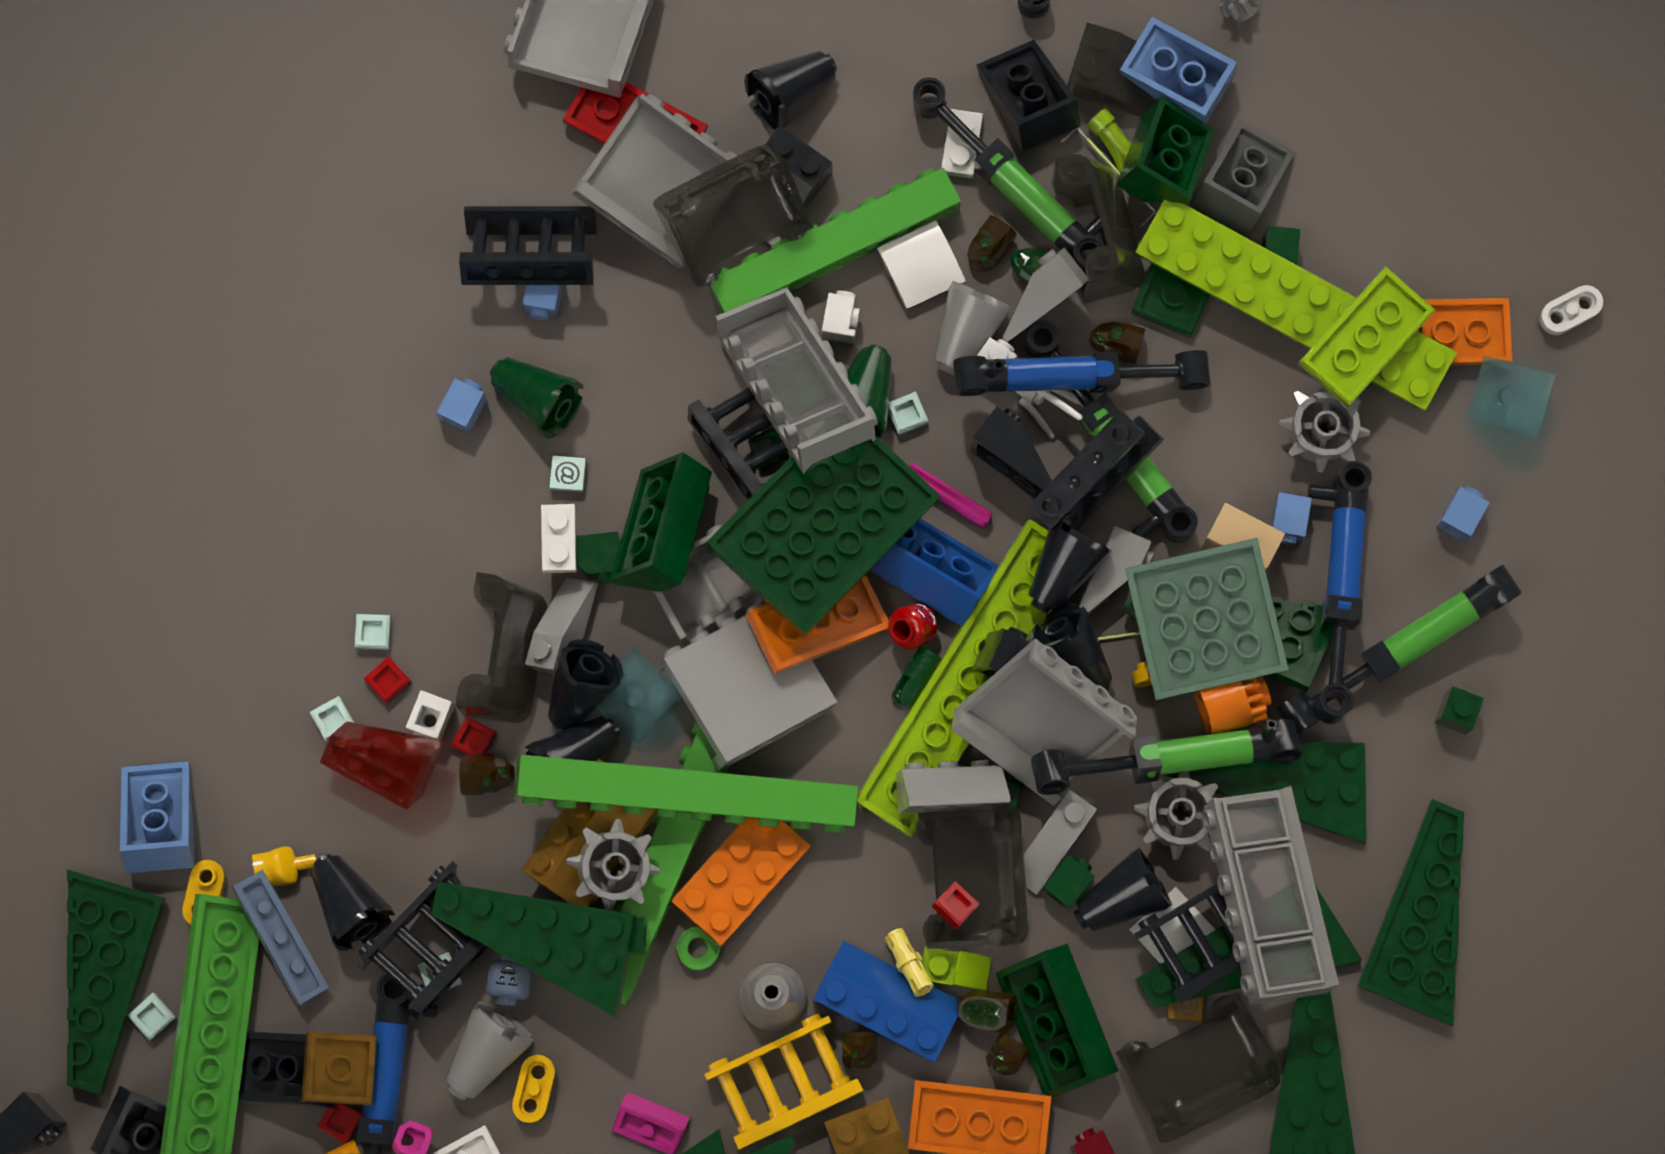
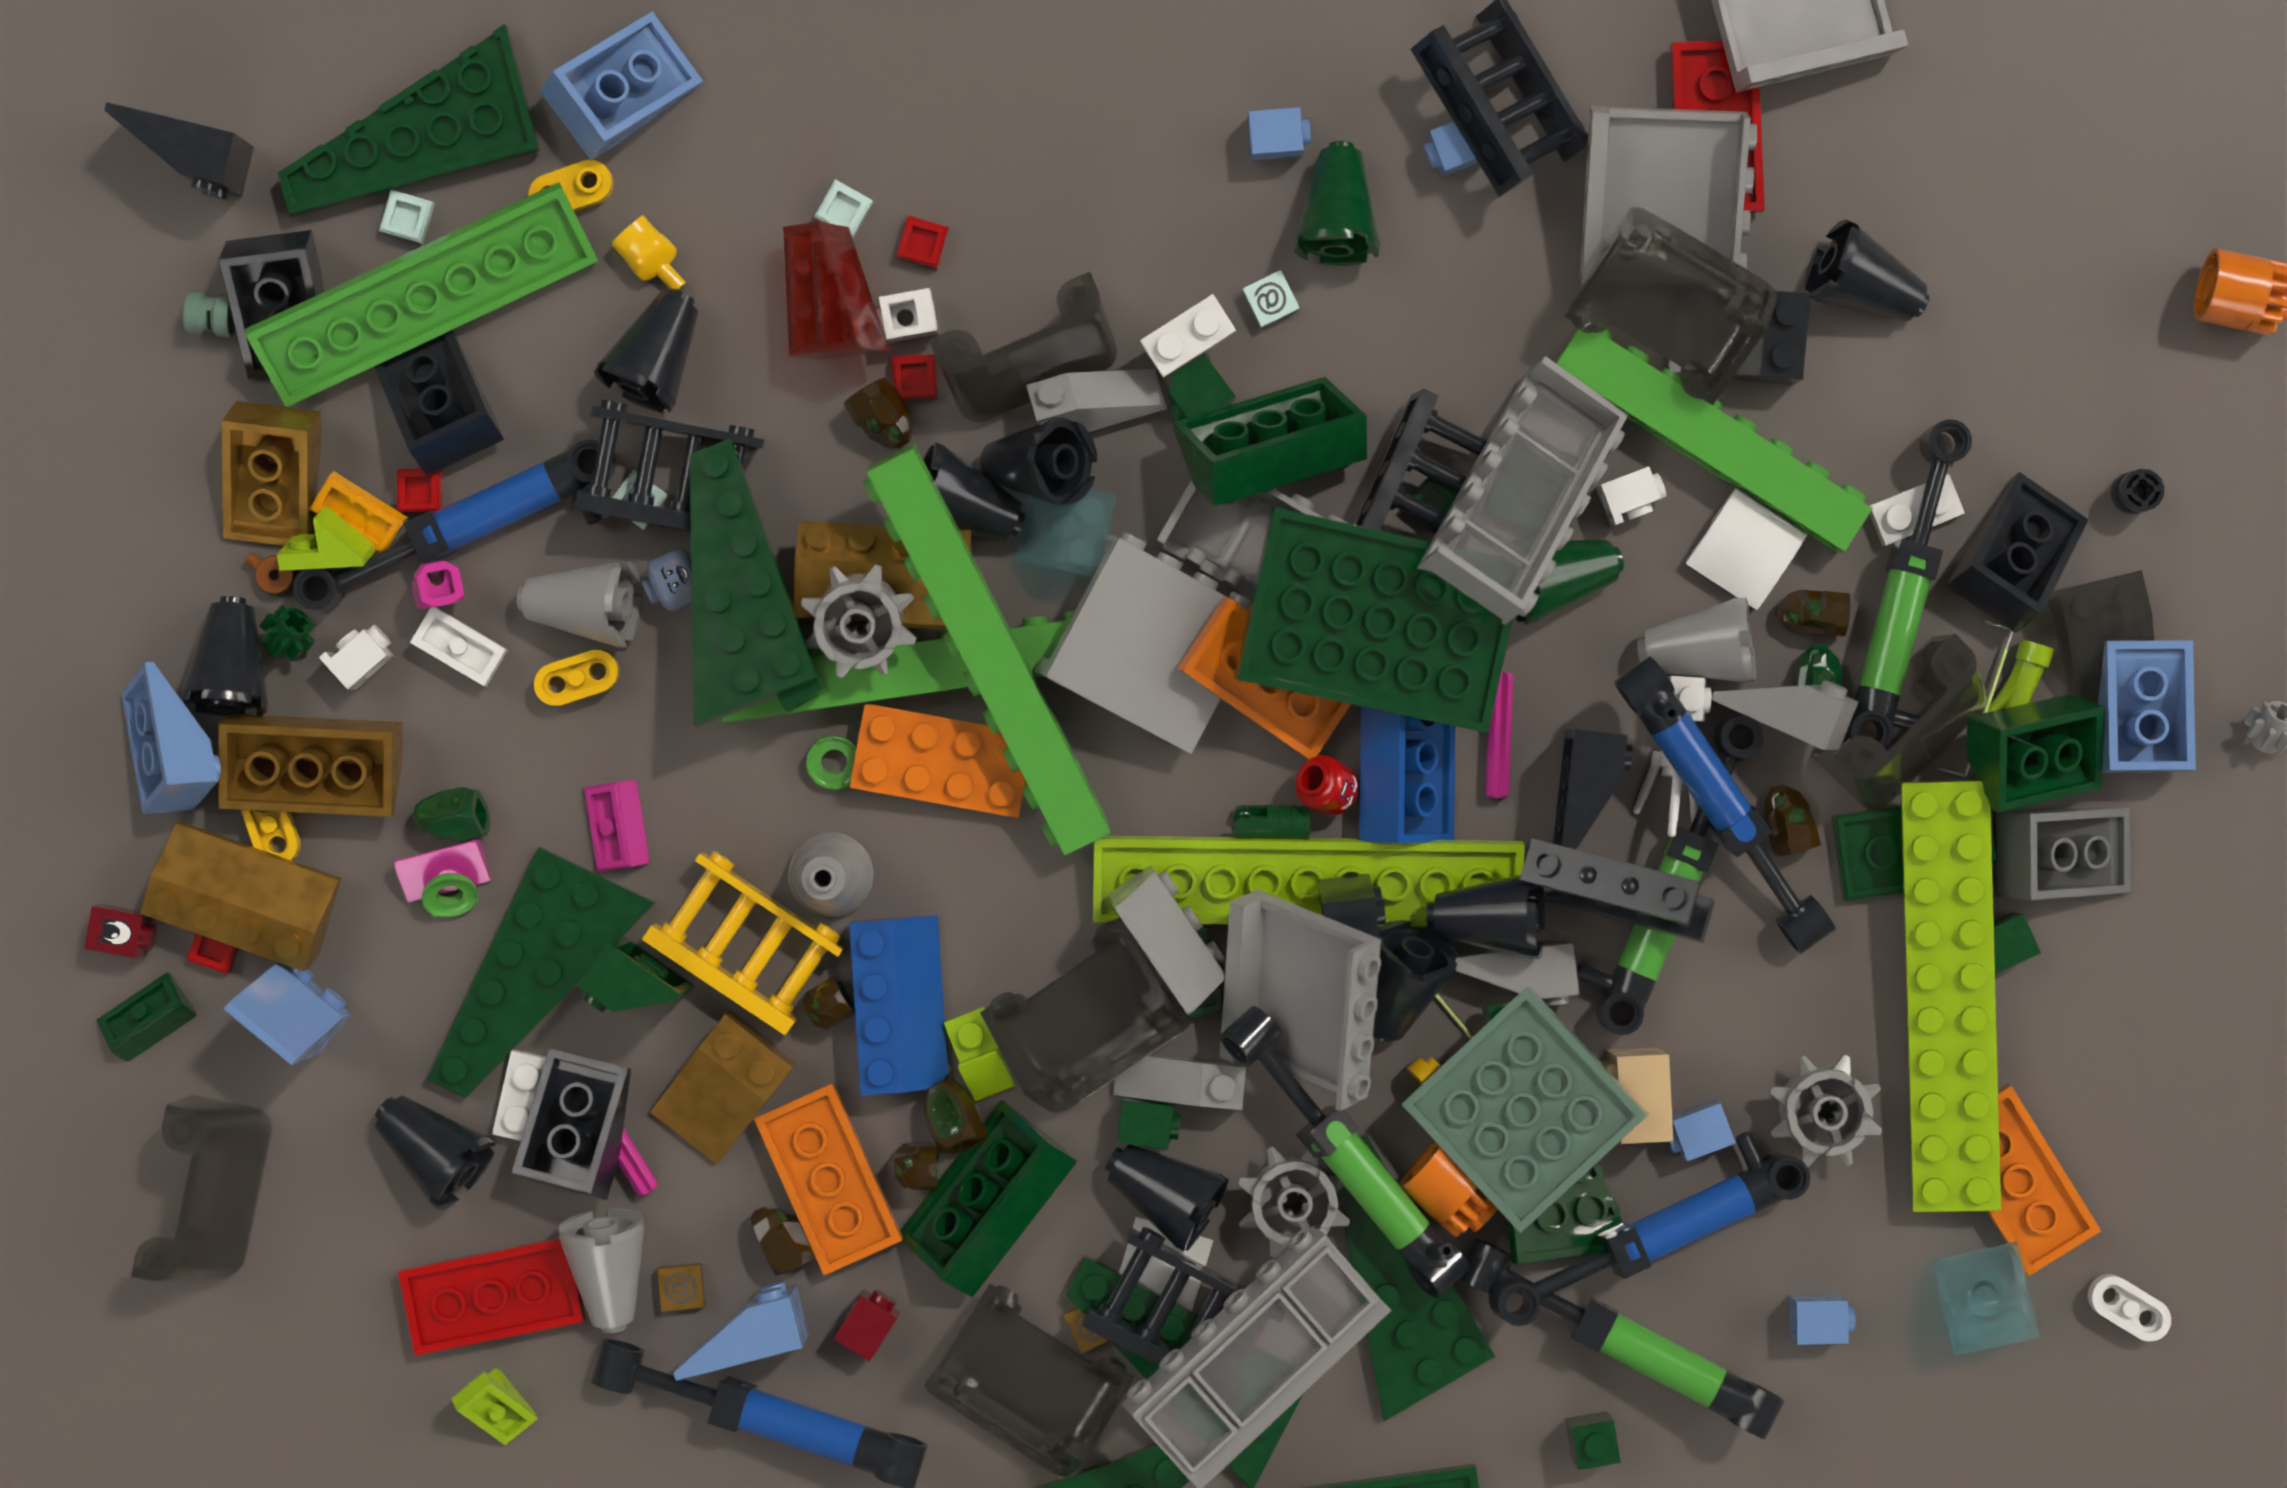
camera: 60 degrees right, 10 degrees up
(279, 937) = (570, 302): sand blue plate -> none
(338, 1068) = (465, 457): pearl gold tile -> none
(372, 631) = (965, 192): light aqua tile -> none
(907, 413) = (1565, 634): light aqua tile -> none
(909, 962) = (954, 1001): light yellow pin -> none
(955, 905) = (1046, 1015): red tile -> none
(1366, 336) = (1957, 1101): lime tile -> none

